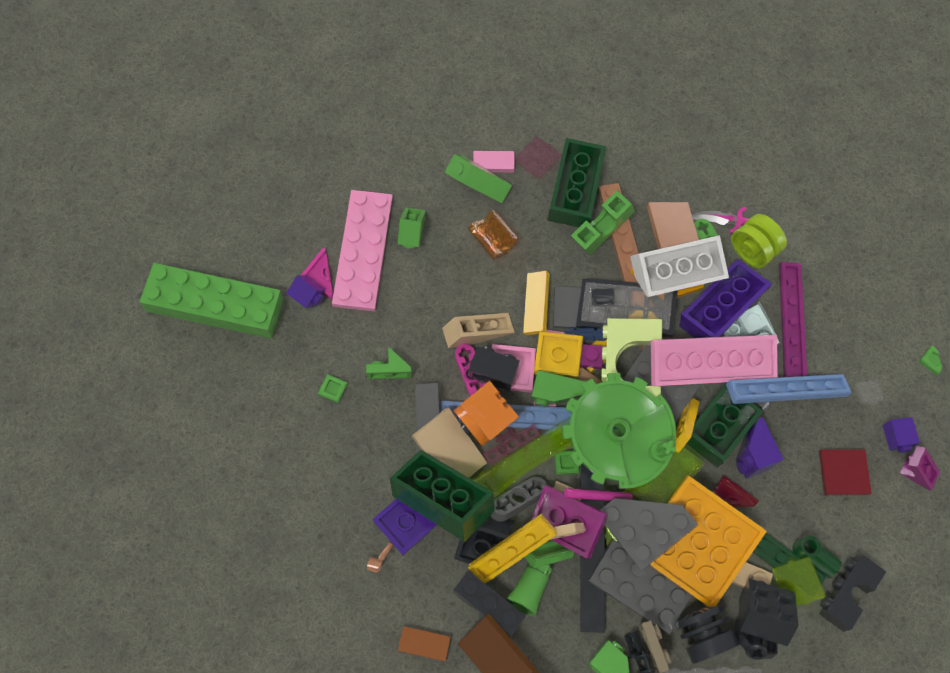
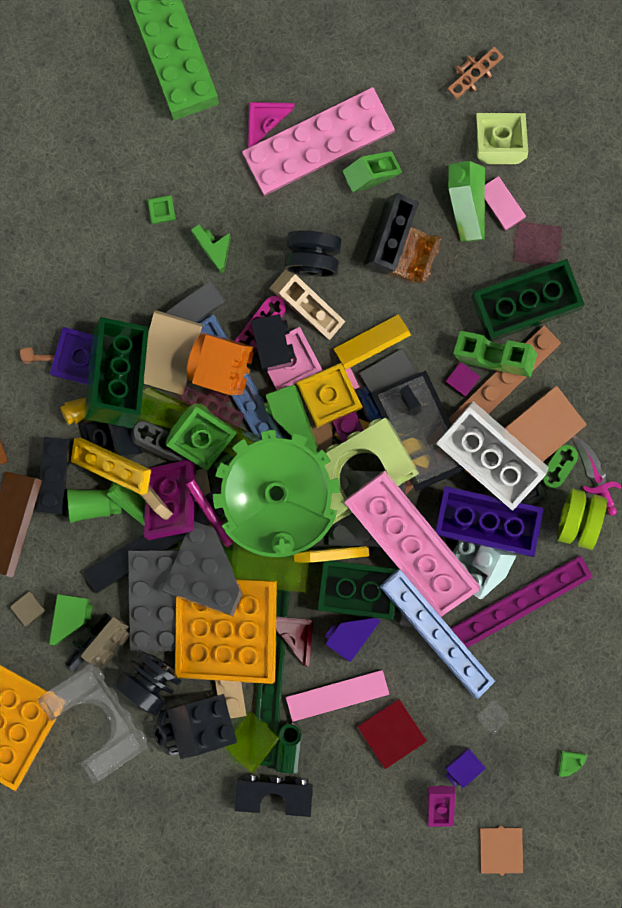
camera: 65 degrees right, 15 degrees up
(306, 291) = (236, 120): dark purple brick -> none
(384, 119) = (475, 65): none -> nougat piece
(445, 298) = (312, 253): none -> black wheel
(445, 552) = (74, 410): none -> yellow cone
(449, 132) = (501, 138): none -> yellowish green slope
(467, 239) = (391, 233): none -> black brick
(532, 464) = (200, 436): none -> bright green slope
(603, 261) = (462, 379): none -> magenta tile
(793, 495) = (337, 695): none -> bright pink tile

